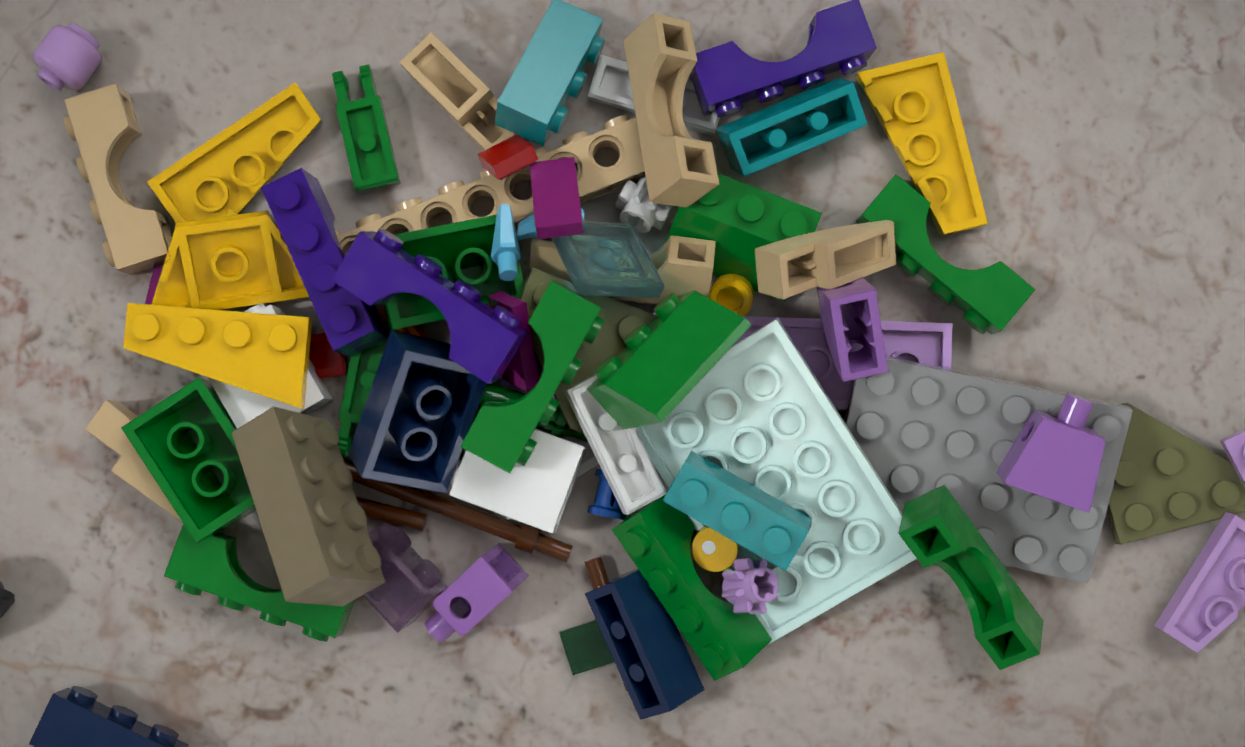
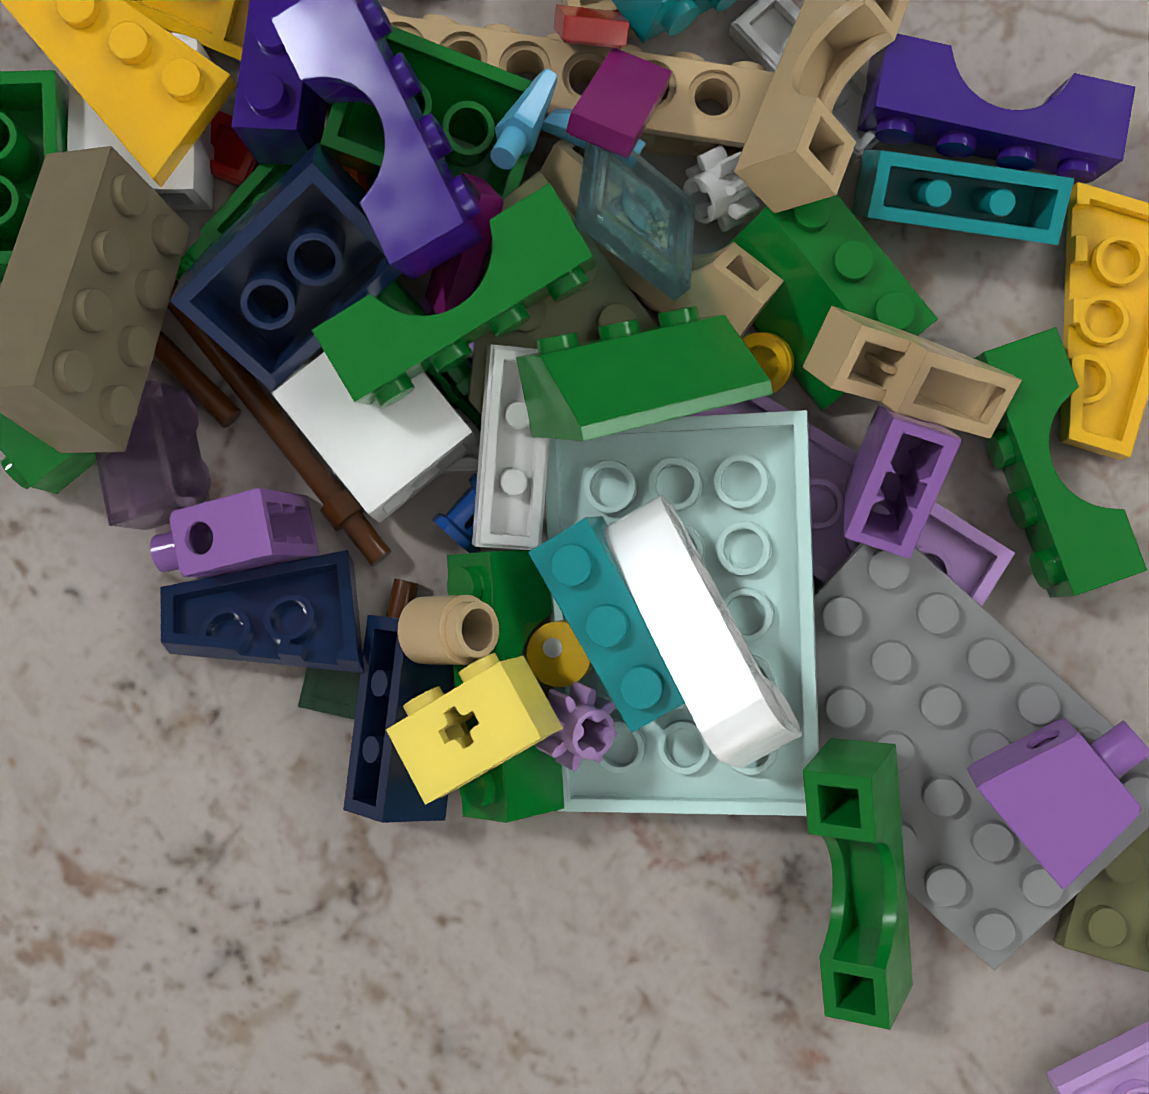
camera: 25 degrees right, 0 degrees up
(523, 629) = (270, 615): none -> dark blue wing
(643, 574) = (447, 630): none -> tan brick
(686, 647) = (440, 747): none -> light yellow brick
(804, 500) = (707, 656): none -> white beam

